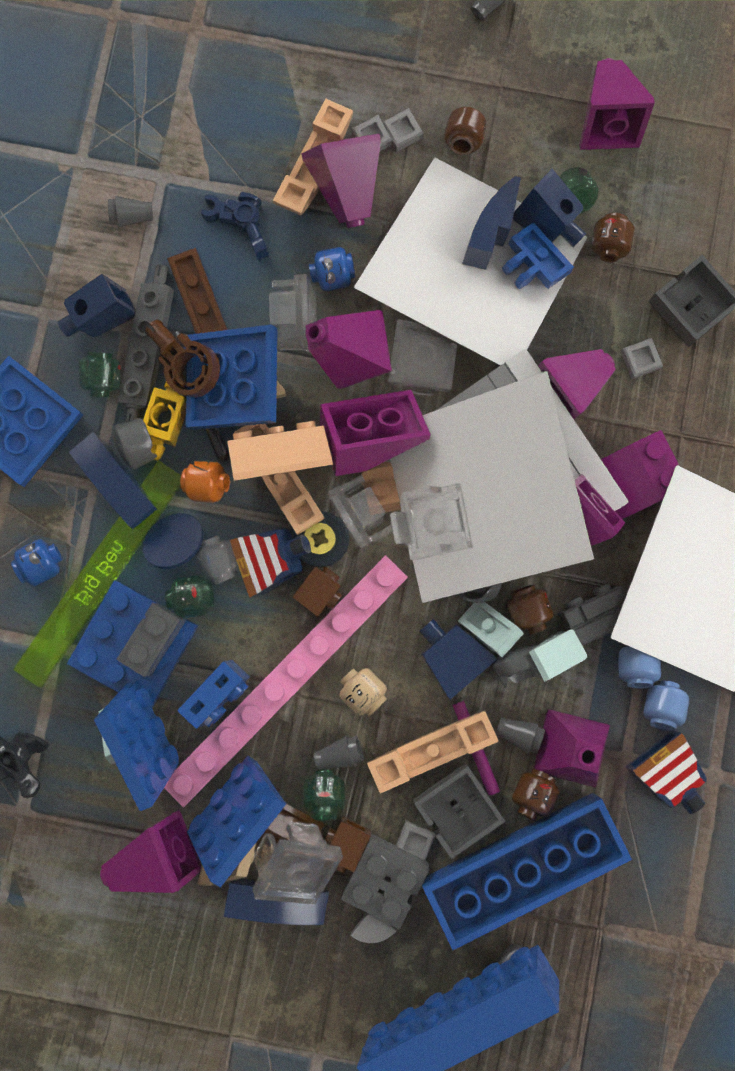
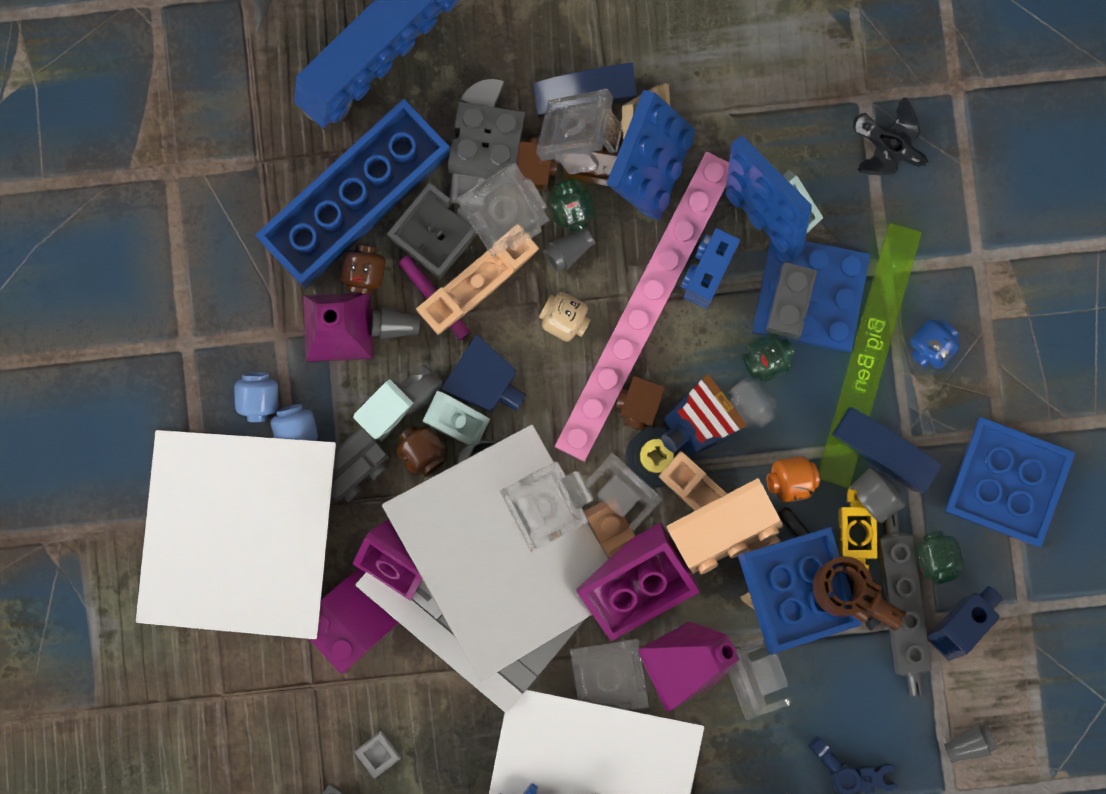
camera: 165 degrees right, 0 degrees up
(155, 861) = (716, 92): magenta slope -> none
(173, 541) = (805, 408): dark blue piece -> none
(196, 292) = (868, 676): reddish brown tile -> none
(332, 269) = (734, 746): blue head -> none
(388, 810) = (505, 209): none -> clear panel
(578, 377) = (441, 702): magenta slope -> none
(671, 772) = (234, 331): torso -> none

